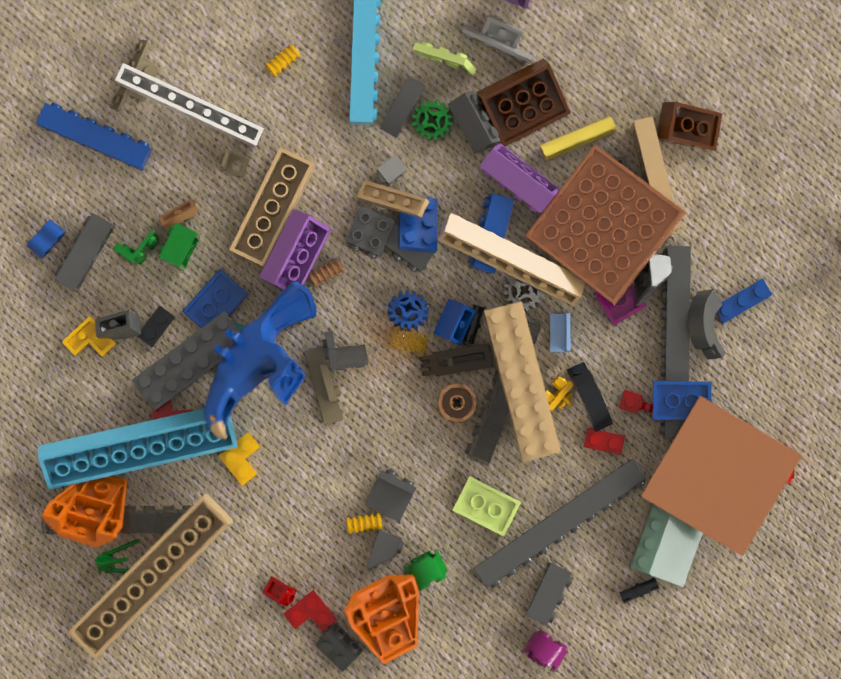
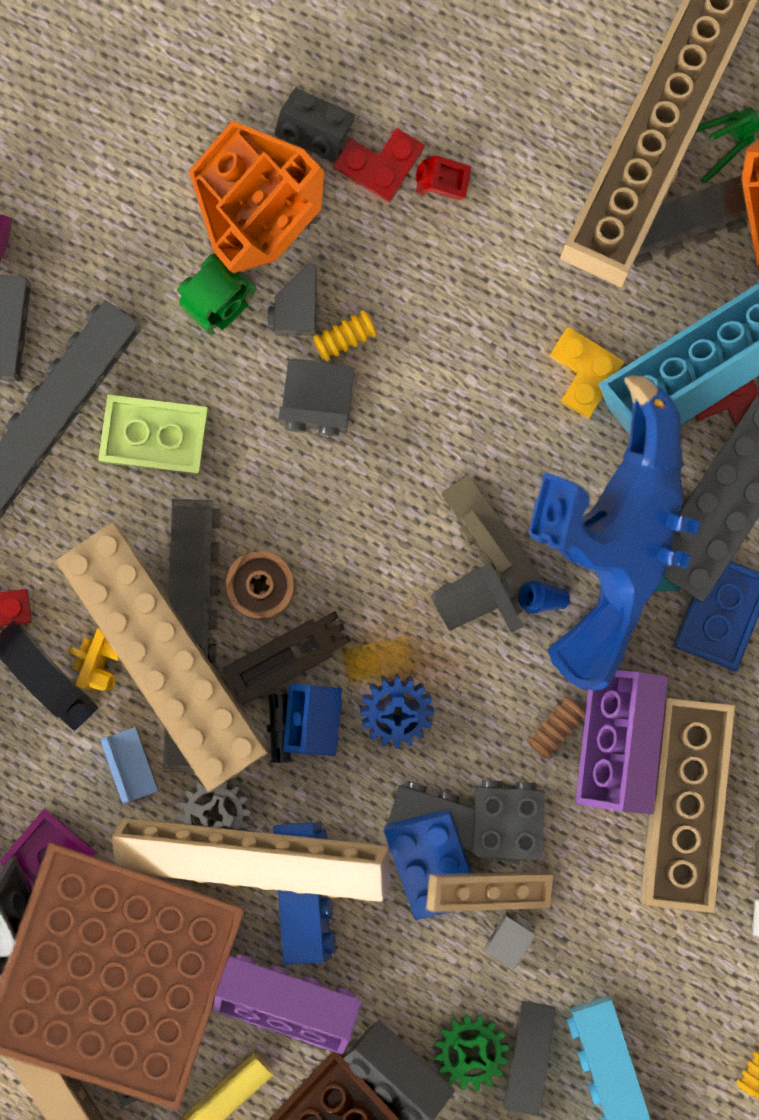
camera: 160 degrees right, 0 degrees up
(310, 344) = (542, 597): none -> blue cone

